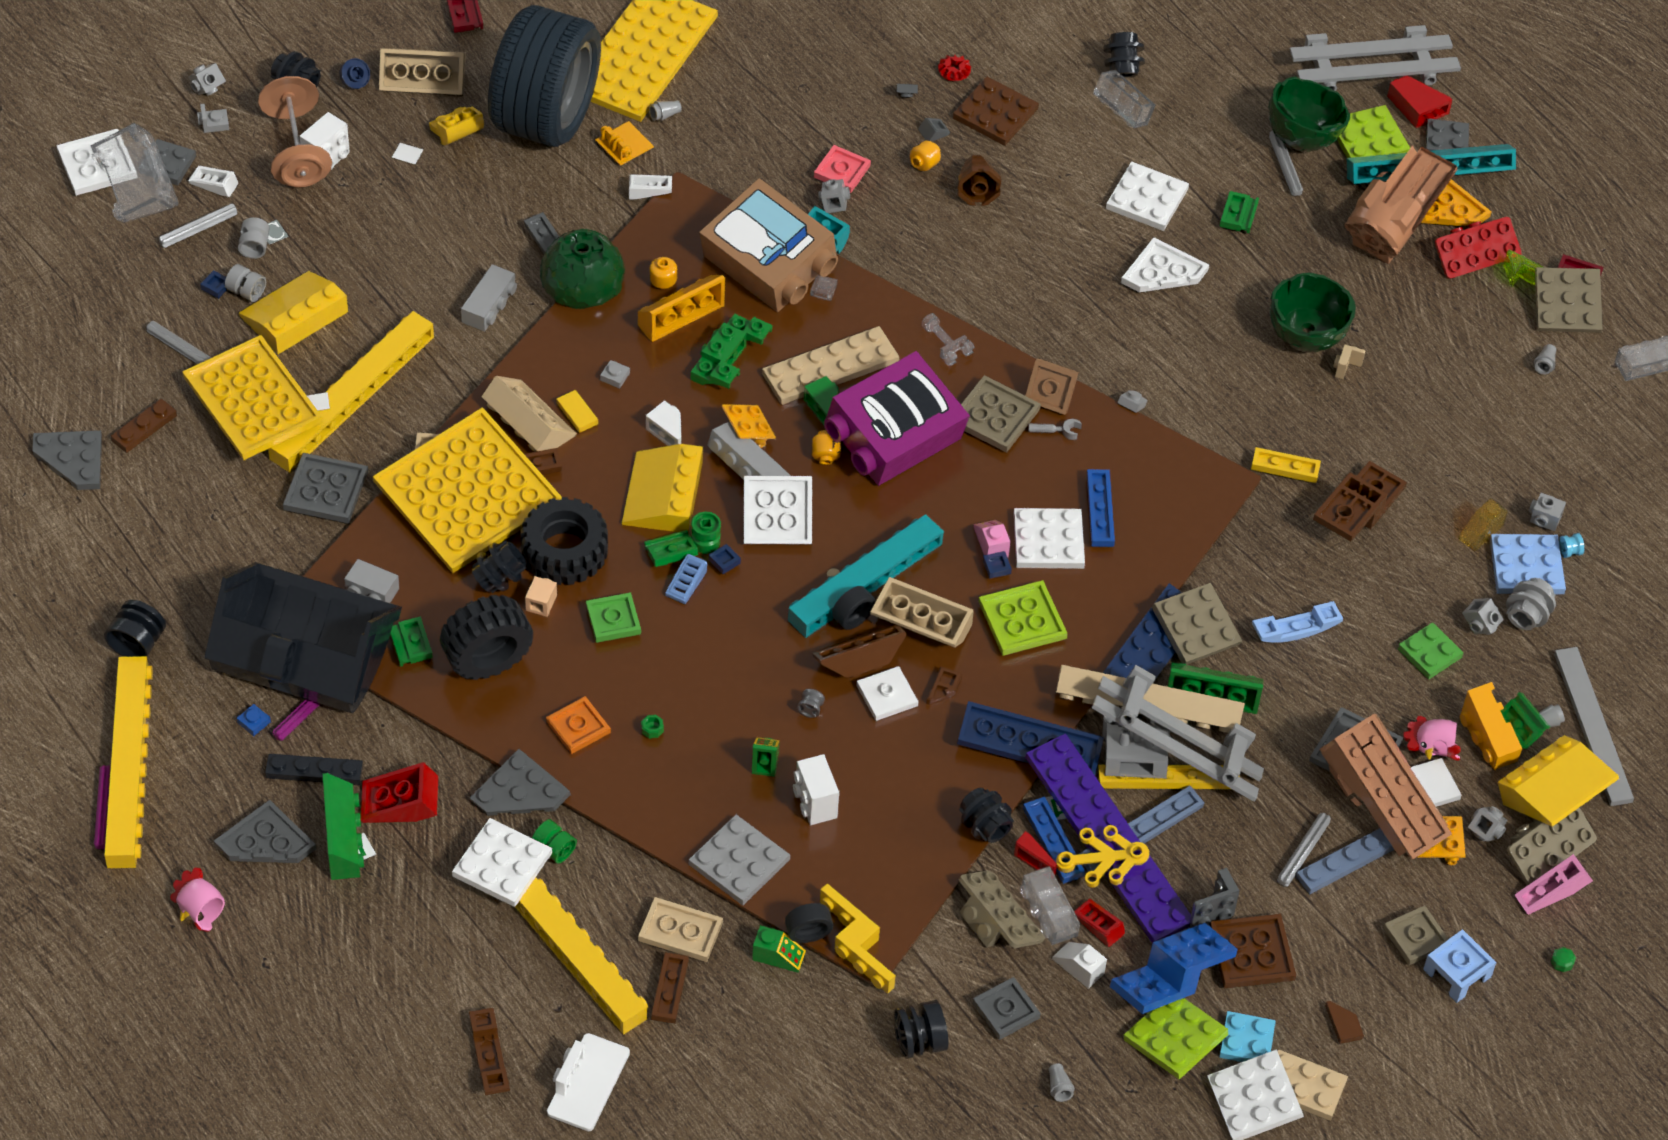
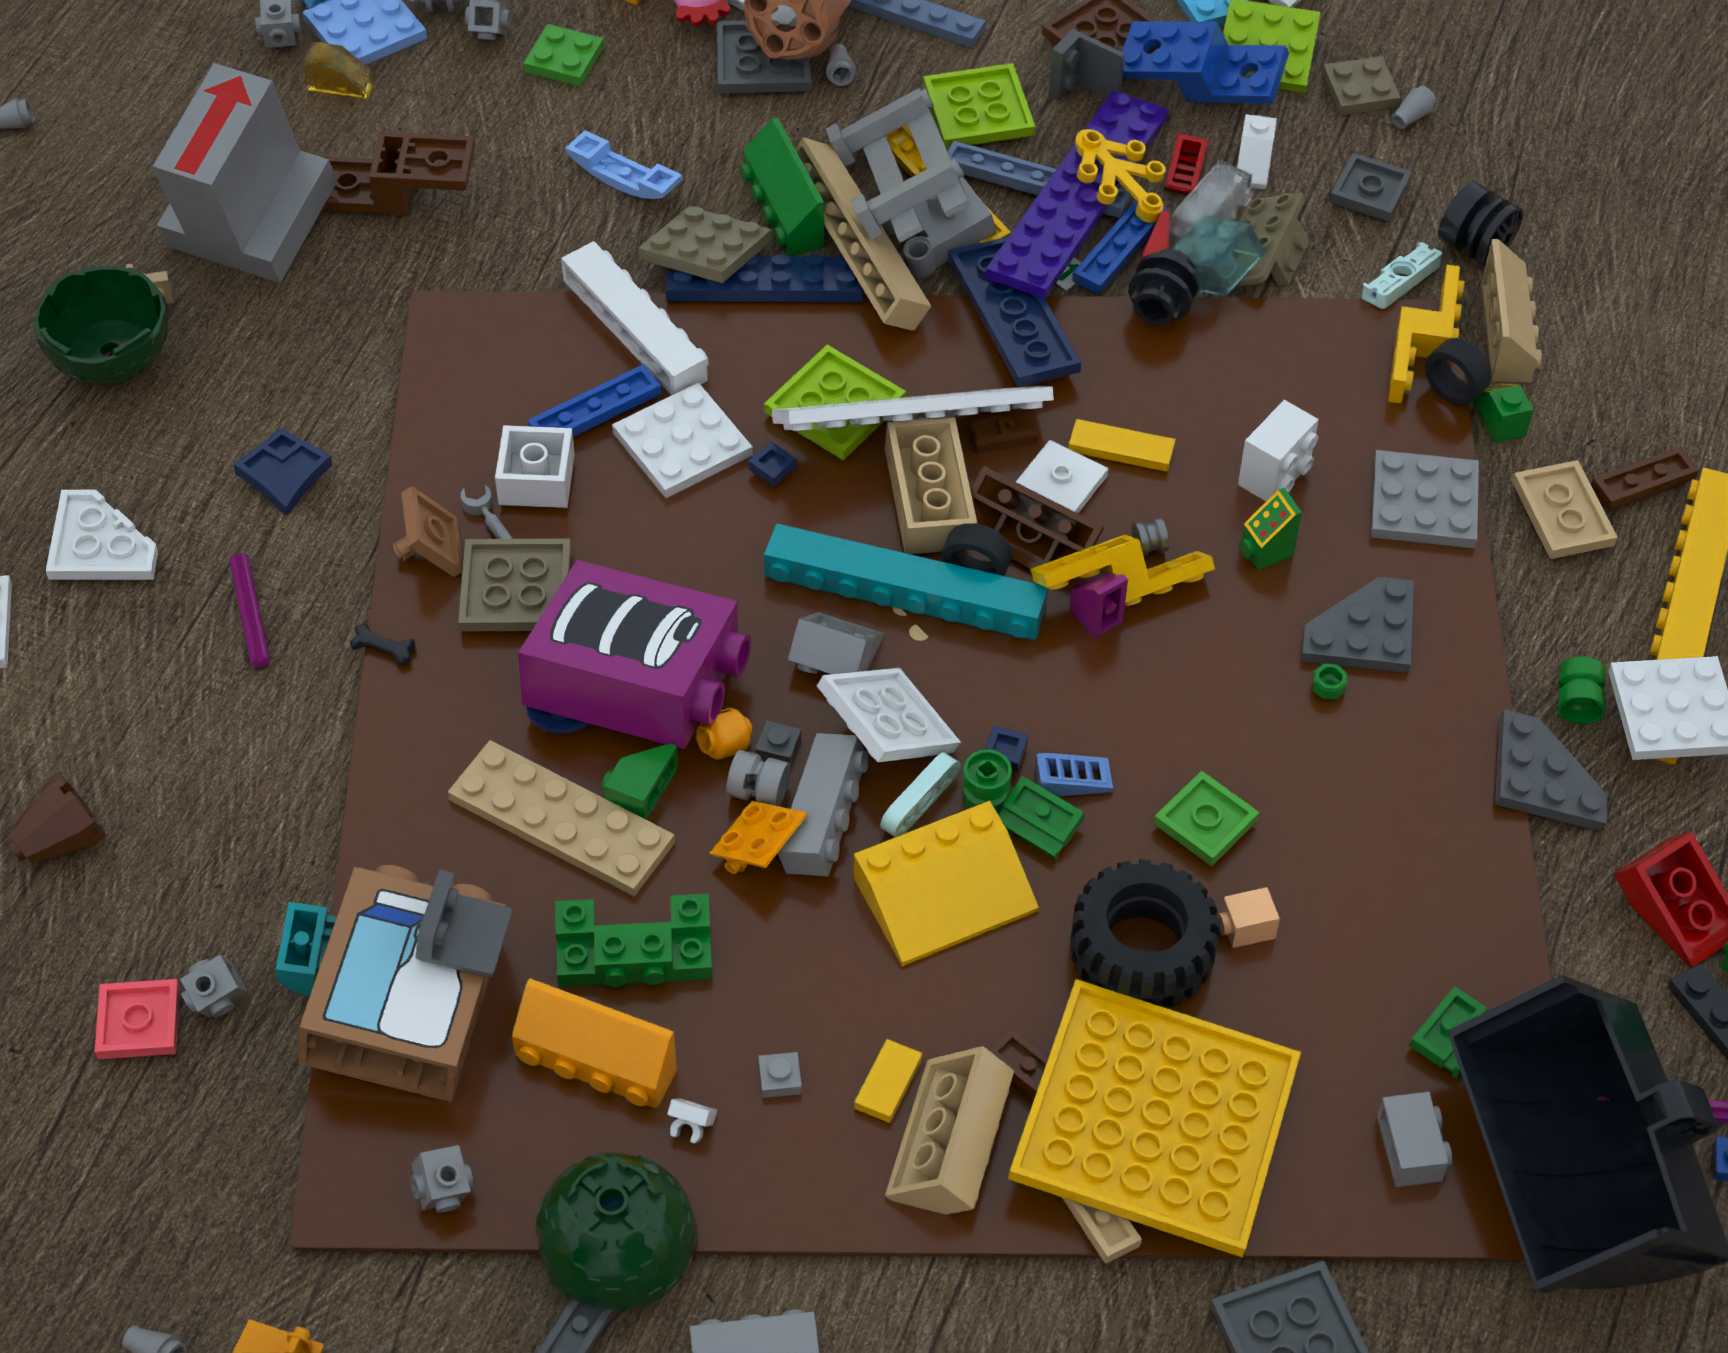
camera: 120 degrees left, 0 degrees up
(486, 637) = (1405, 893): black tyre -> none
(502, 564) = (1267, 984): black piece -> none
(578, 725) = (1396, 766): orange tile -> none
(619, 327) = (691, 1114): none -> white tile
(645, 186) = (368, 1282): white slope -> none
(659, 222) = (441, 1179): none -> light grey brick
(663, 272) = (542, 1113): light orange head -> none
(665, 423) = (830, 942): white slope -> none
(674, 770) = (1365, 628): none -> dark grey plate
(724, 507) = (920, 795): none -> light aqua beam
(767, 255) = (461, 929): none -> dark grey bracket
(783, 445) = (770, 782): none -> light grey wheel
(783, 646) = (1099, 602): none -> magenta slope
(792, 667) = (1124, 557): none -> yellow bracket
(807, 468) = (778, 742): none -> dark grey plate
(839, 996) = (1509, 316): none -> tan slope
(847, 523) = (833, 645): none -> light grey slope
(890, 737) = (1122, 445): none -> yellow tile
(913, 956) = (1390, 287): none -> light aqua piece
(925, 155) = (44, 919): light orange head -> none
(931, 323) = (398, 733): clear bar -> none
(978, 630) = (902, 408): none -> white plate
(989, 351) = (366, 638): none -> black piece
(992, 537) = (733, 486): bright pink slope -> none
(996, 863) = (1221, 252): none -> clear light blue brick
(1068, 310) = (249, 611): none -> magenta axle
(1068, 452) = (535, 466): none -> white brick
(1105, 1072) = (1361, 85): none -> dark tan plate
(1132, 400) = (375, 465): light grey plate -> none
(1156, 556) = (634, 318): none -> white brick
(1160, 362) = (283, 468): none -> dark blue plate
(1230, 838) = (979, 105): none -> lime plate
(1286, 465) = (373, 277): yellow plate -> none
(1303, 849) = (935, 48): light grey axle -> none
(1320, 785) = (840, 66): none -> light grey cone
(1379, 402) = (239, 178): none -> light grey piece

